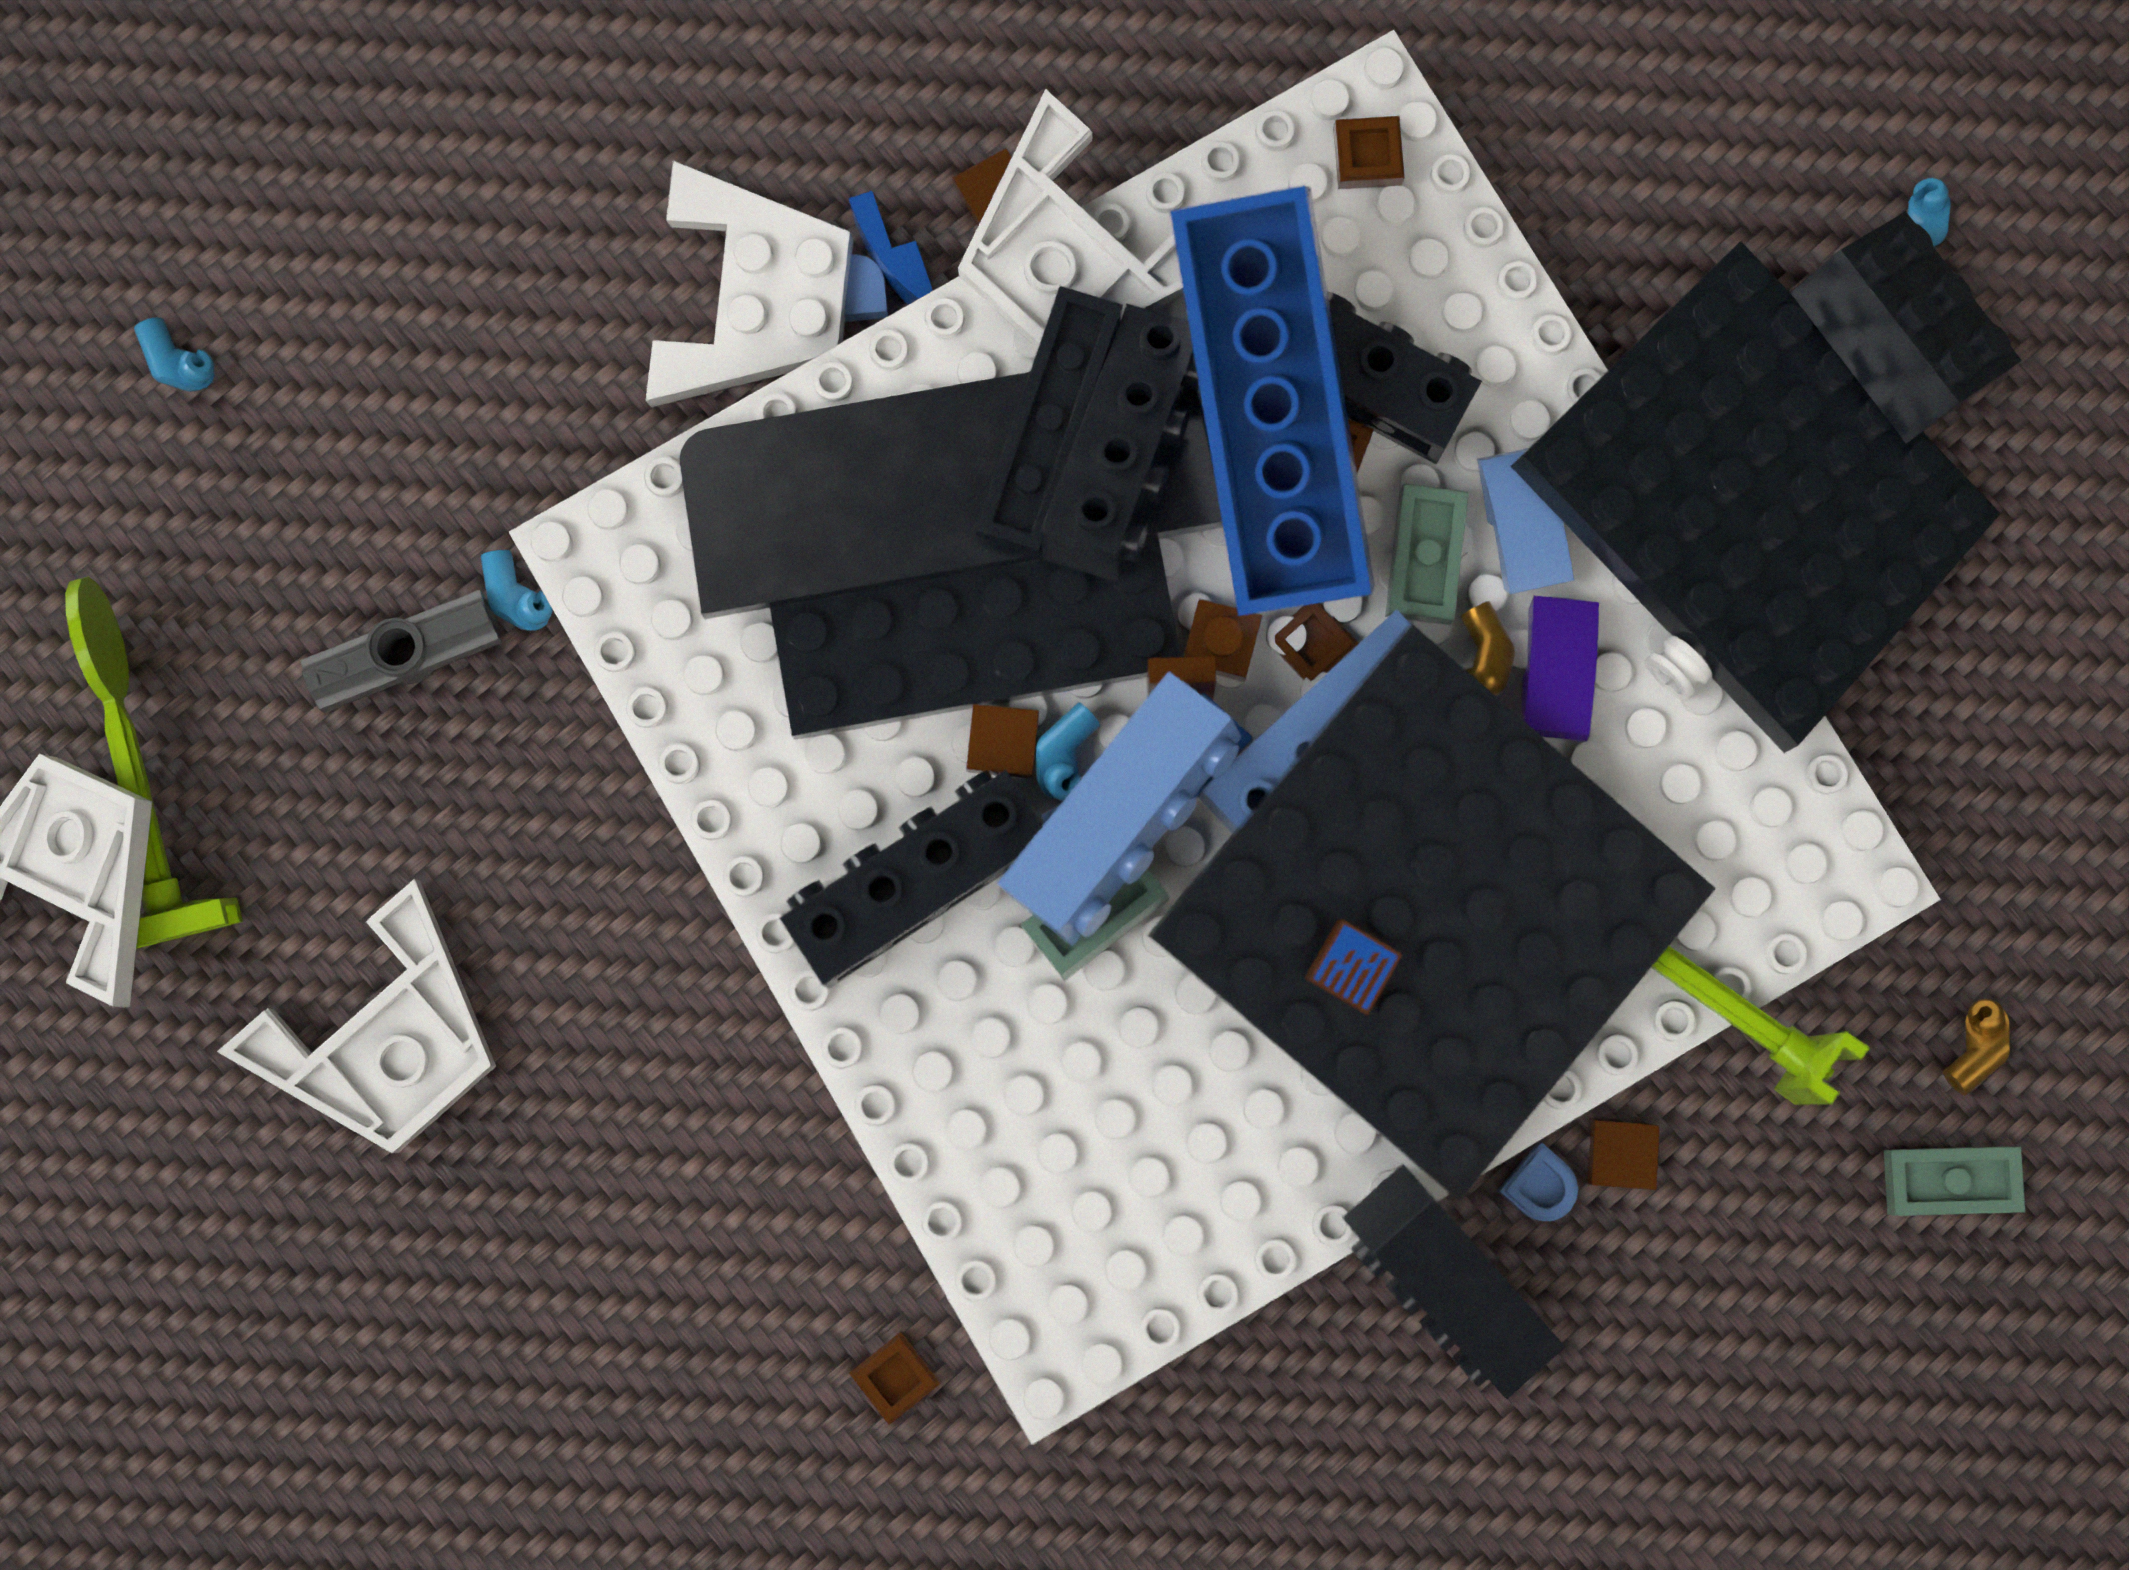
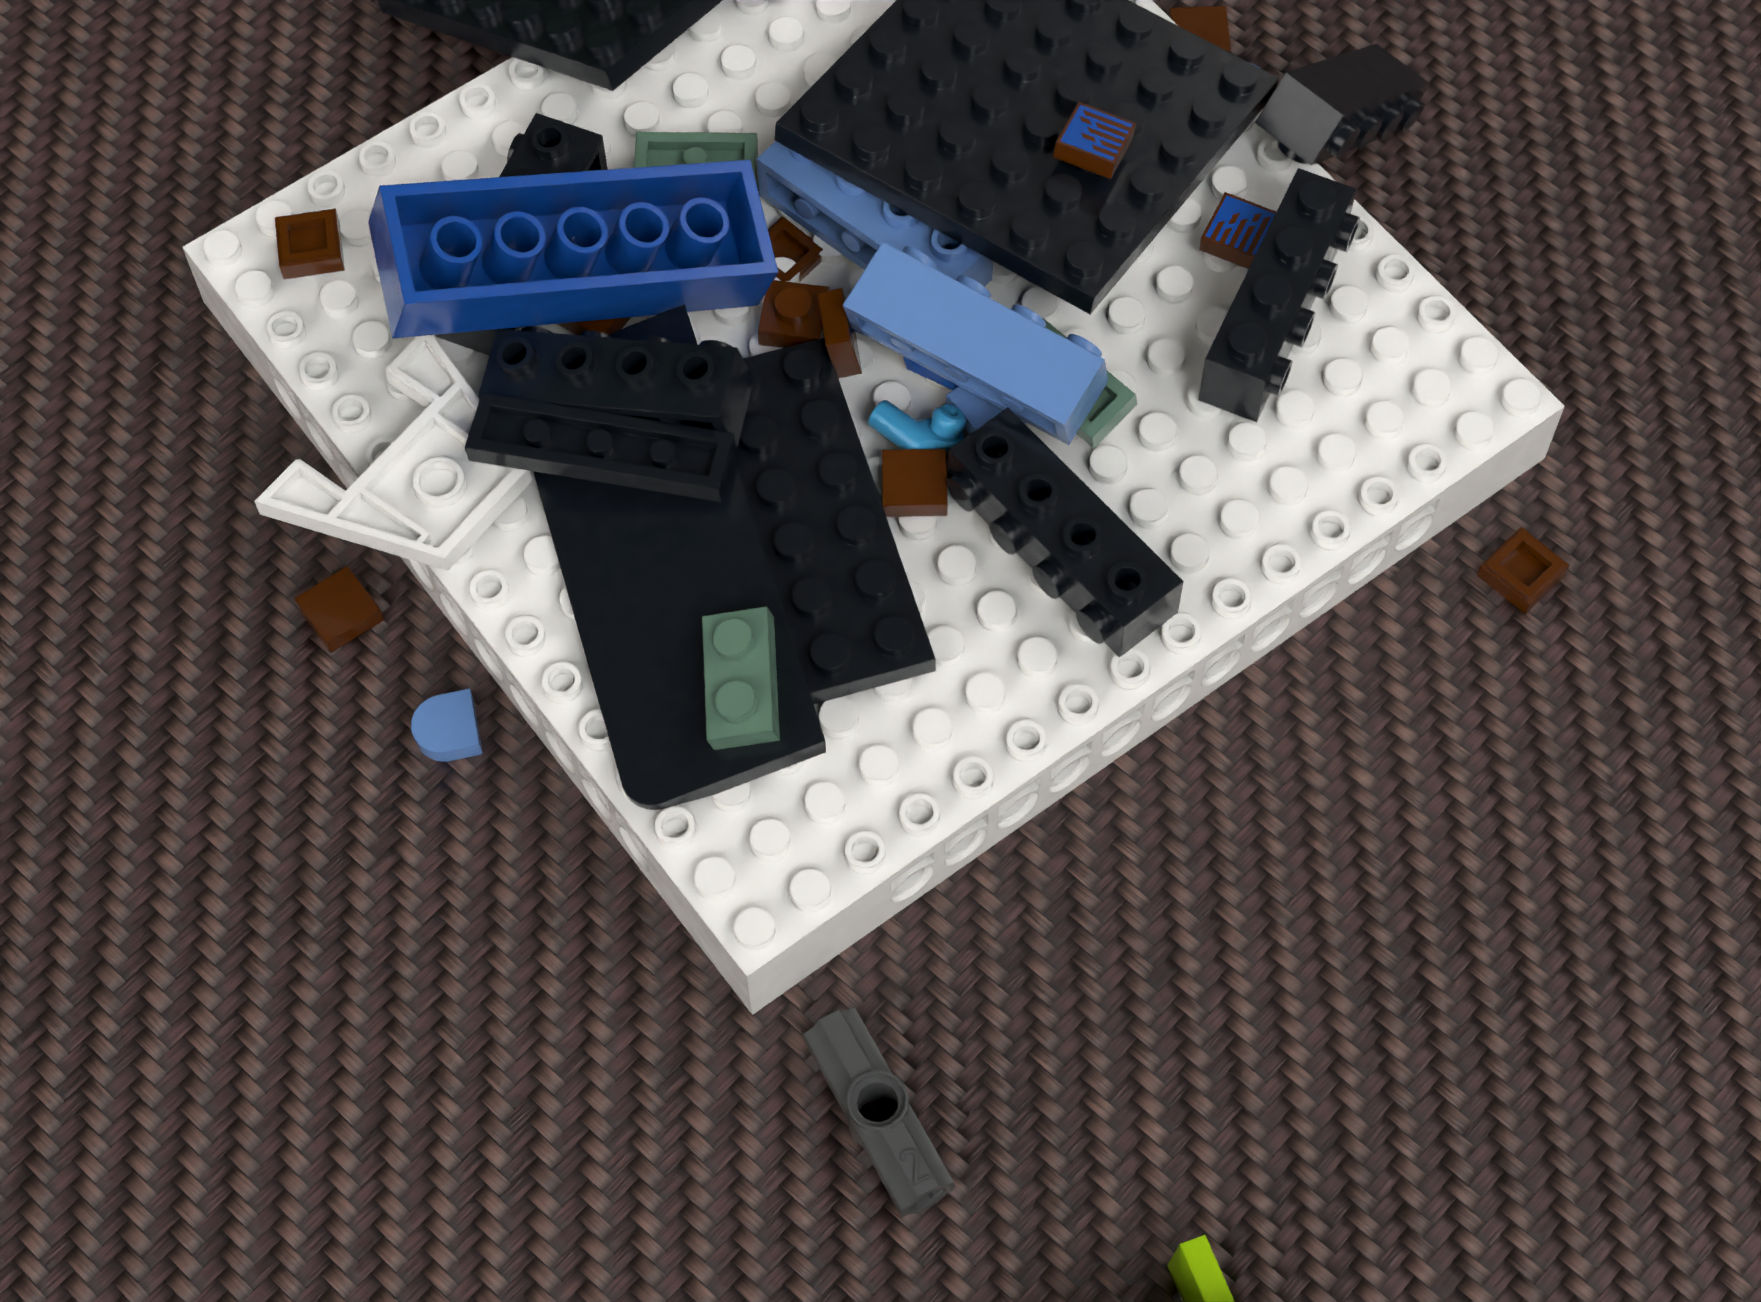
camera: 95 degrees left, 20 degrees down
(399, 1055) = (1310, 1059): white wing -> none
(510, 599) = (812, 1001): dark azure arm -> none
(776, 296) = (451, 793): white wing -> none
(779, 540) = (740, 678): none -> sand green plate
(900, 265) = (433, 669): blue slope -> none
(1178, 1151) = (1277, 295): none -> black brick
(1276, 1129) = (1236, 230): none -> tile
(1495, 648) = (767, 110): pearl gold arm -> none
(1526, 530) = (660, 88): medium blue slope -> none
(1560, 667) = (785, 52): dark purple slope -> none

